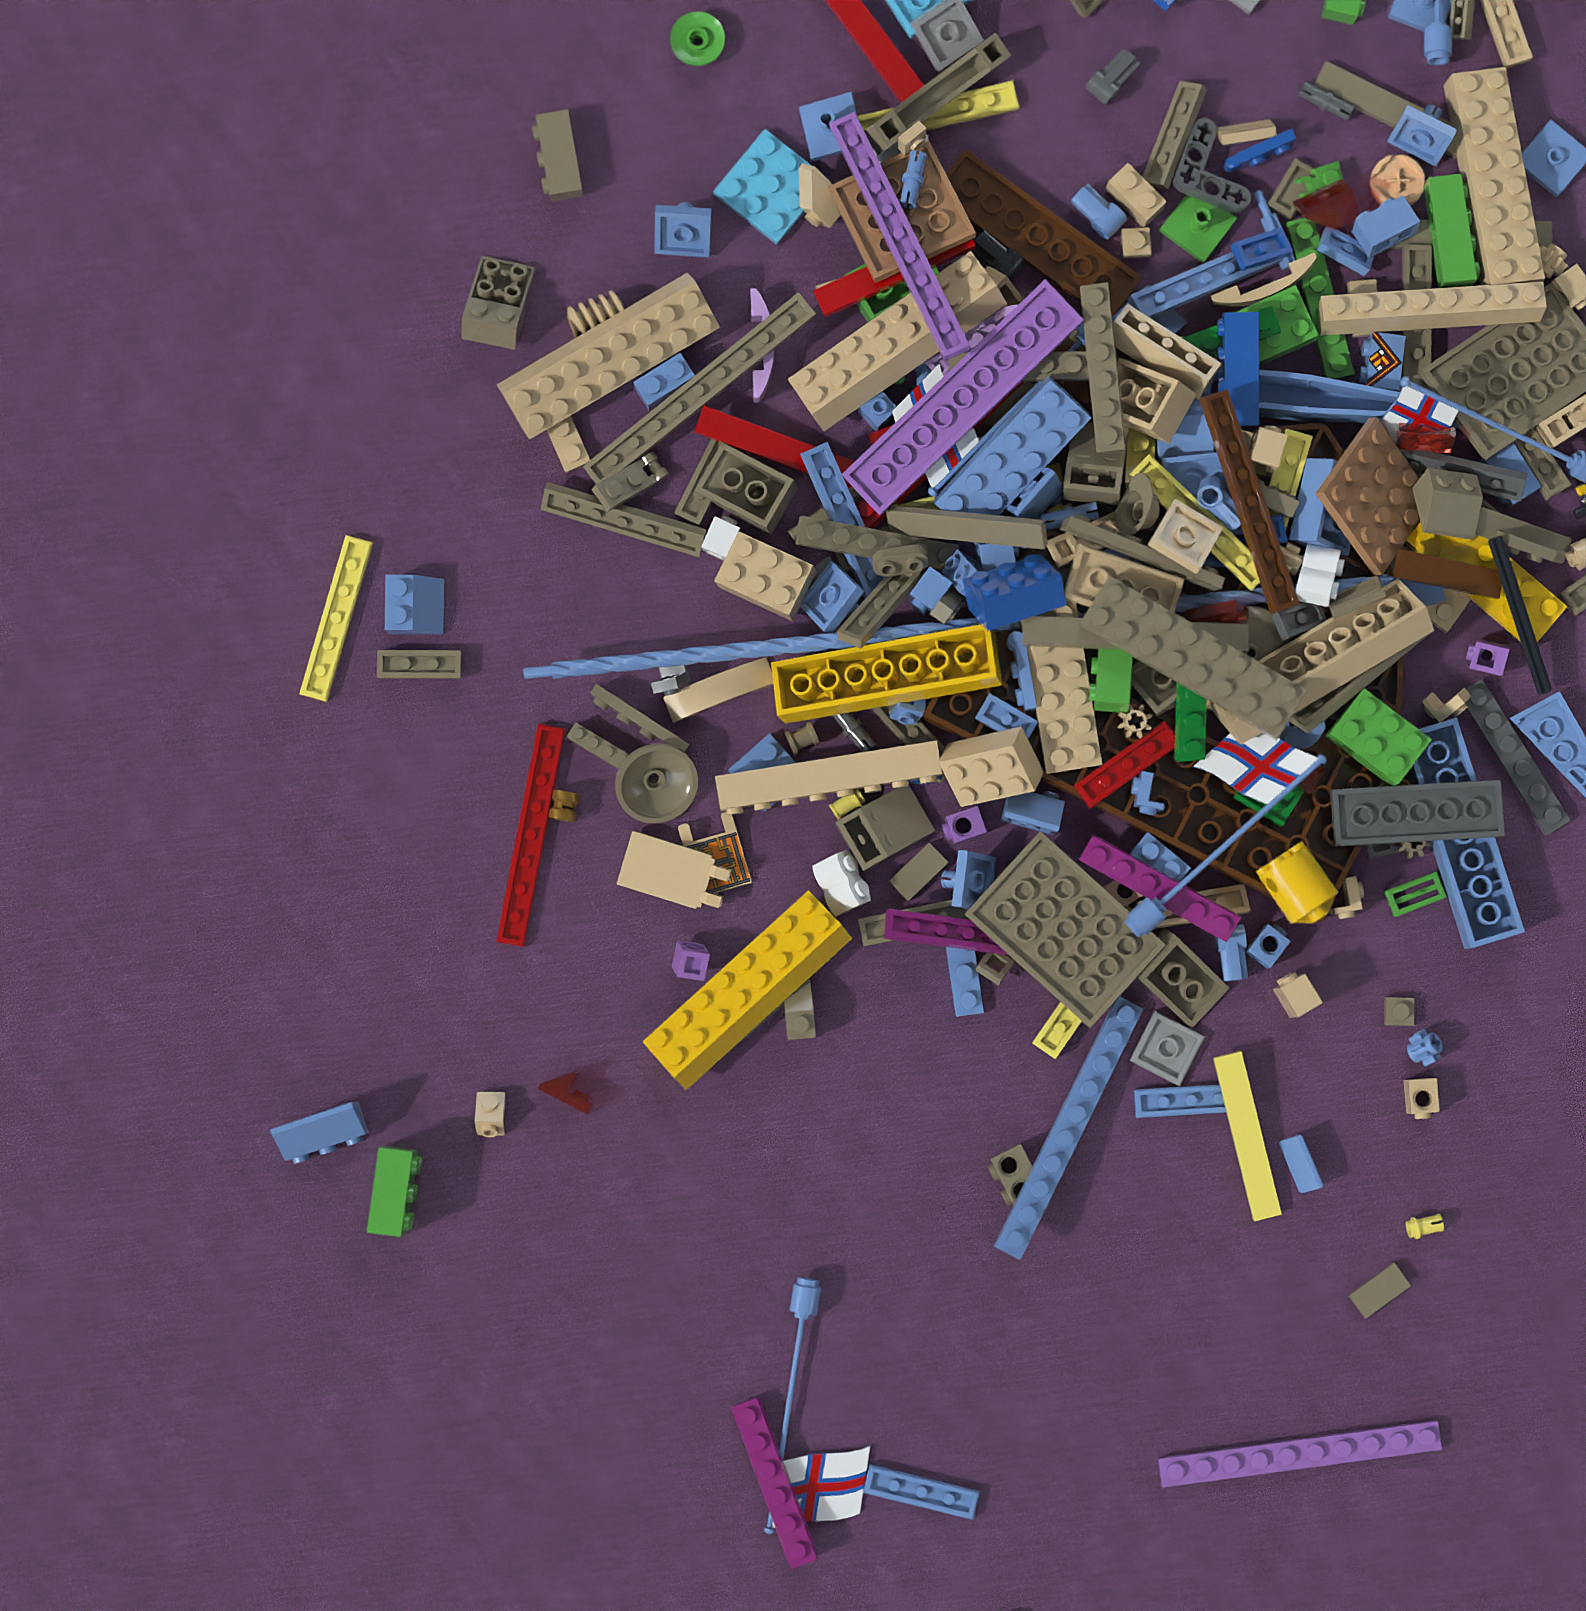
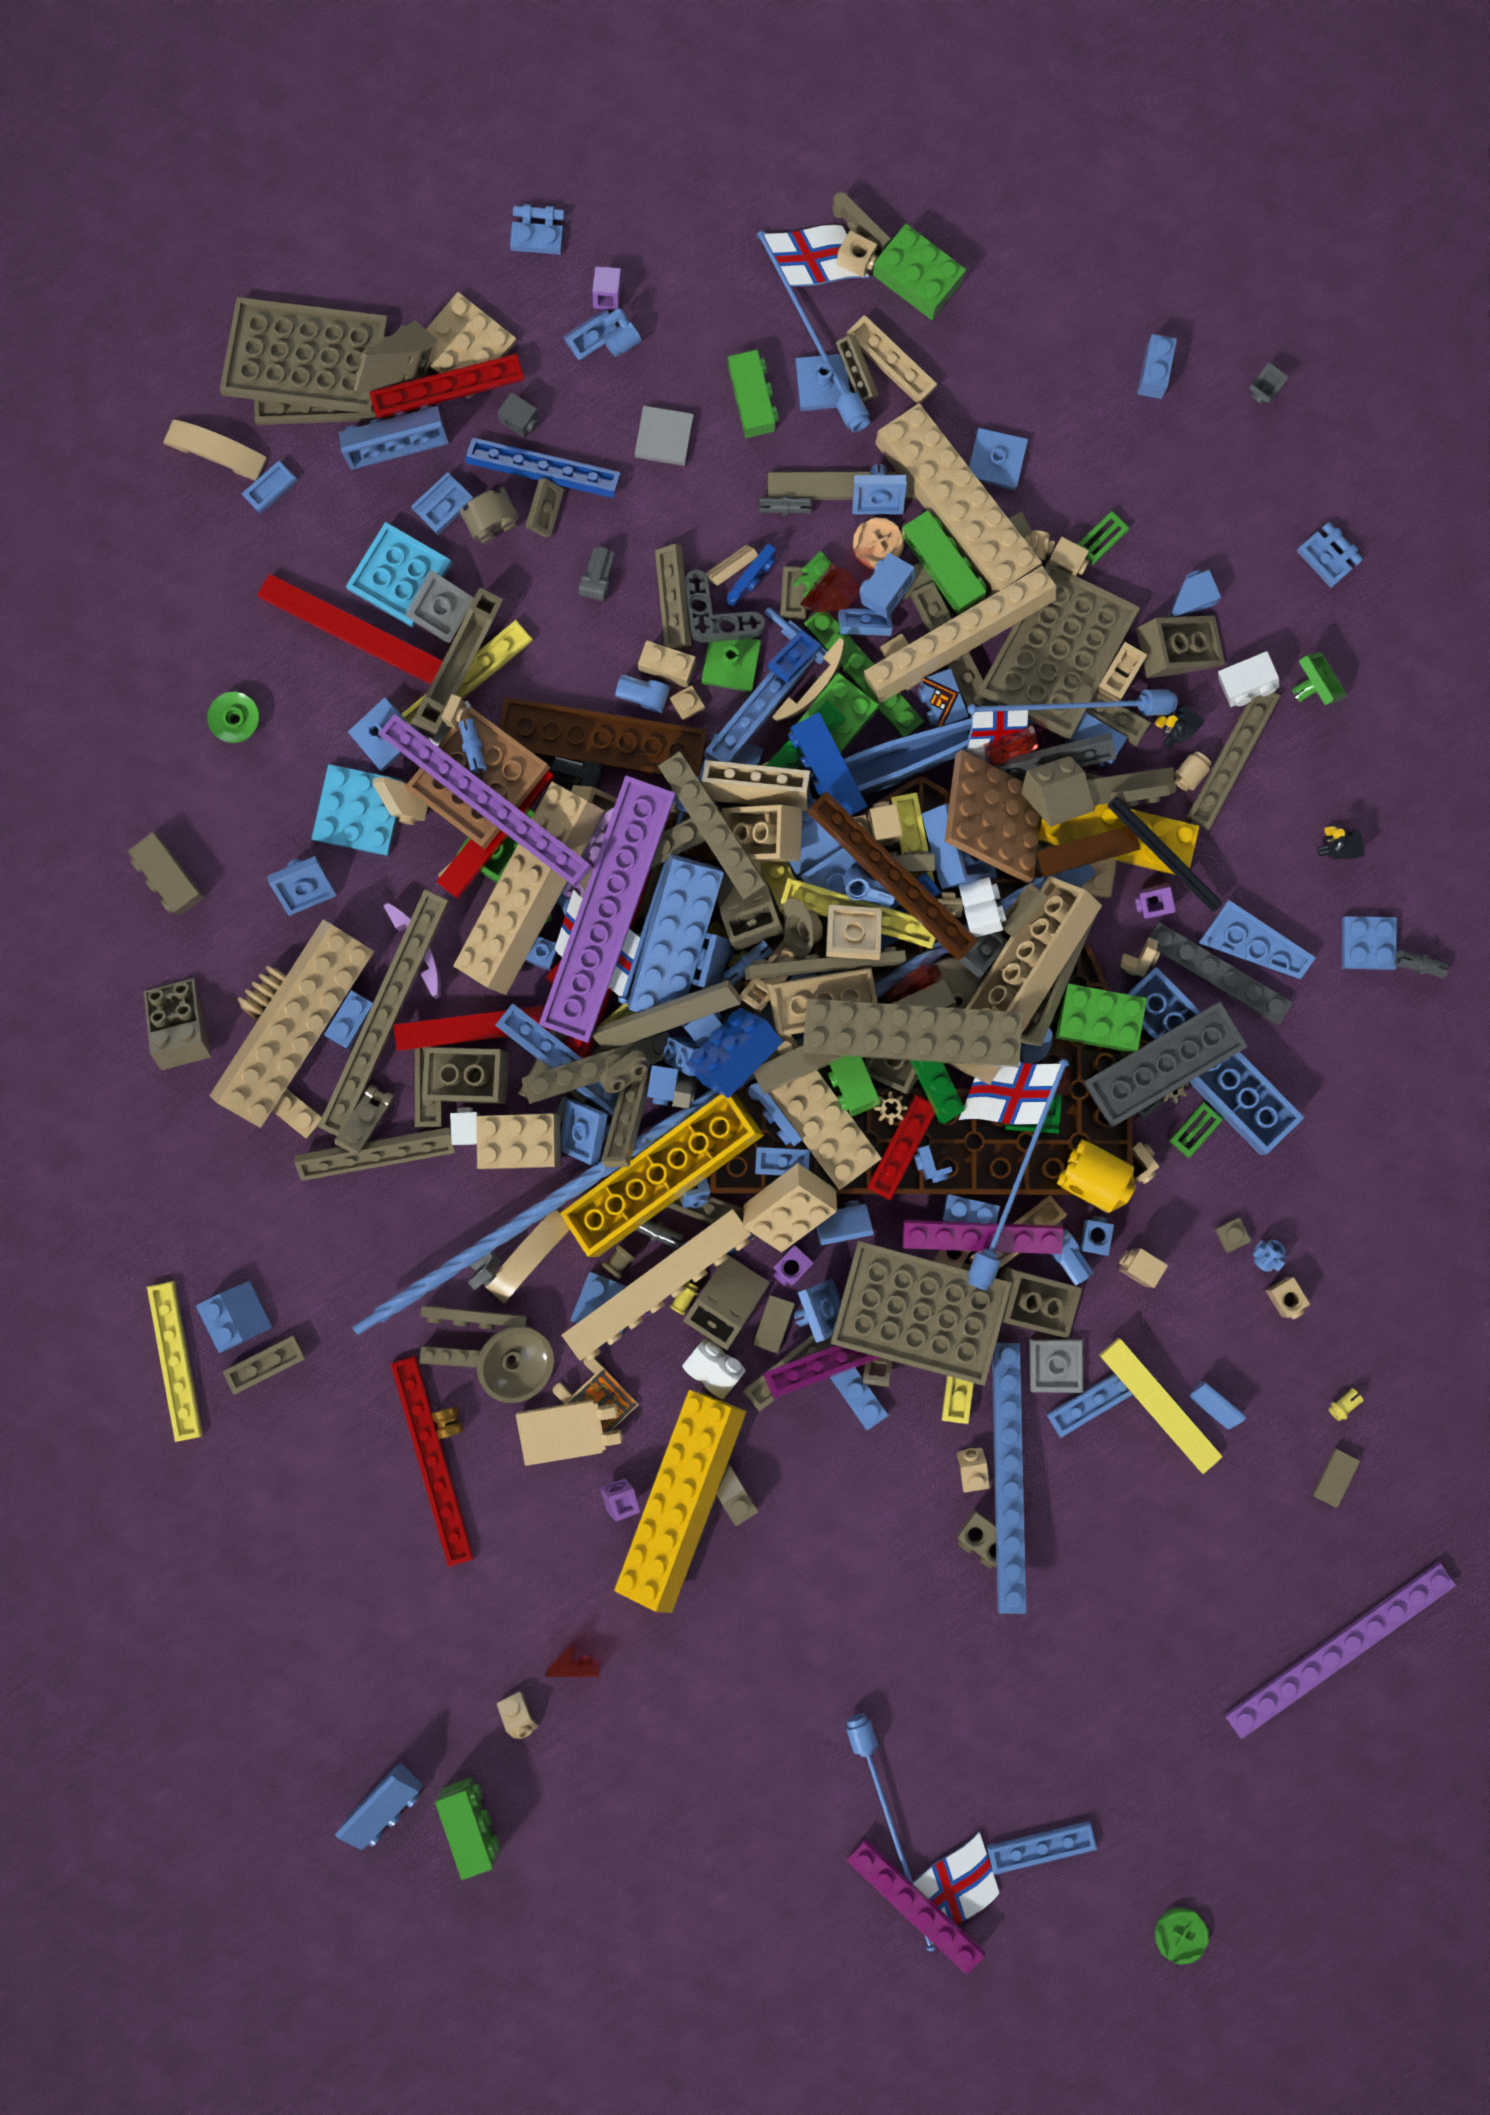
camera: 25 degrees left, 0 degrees up
(1037, 1105) = (973, 1469): none -> tan bracket

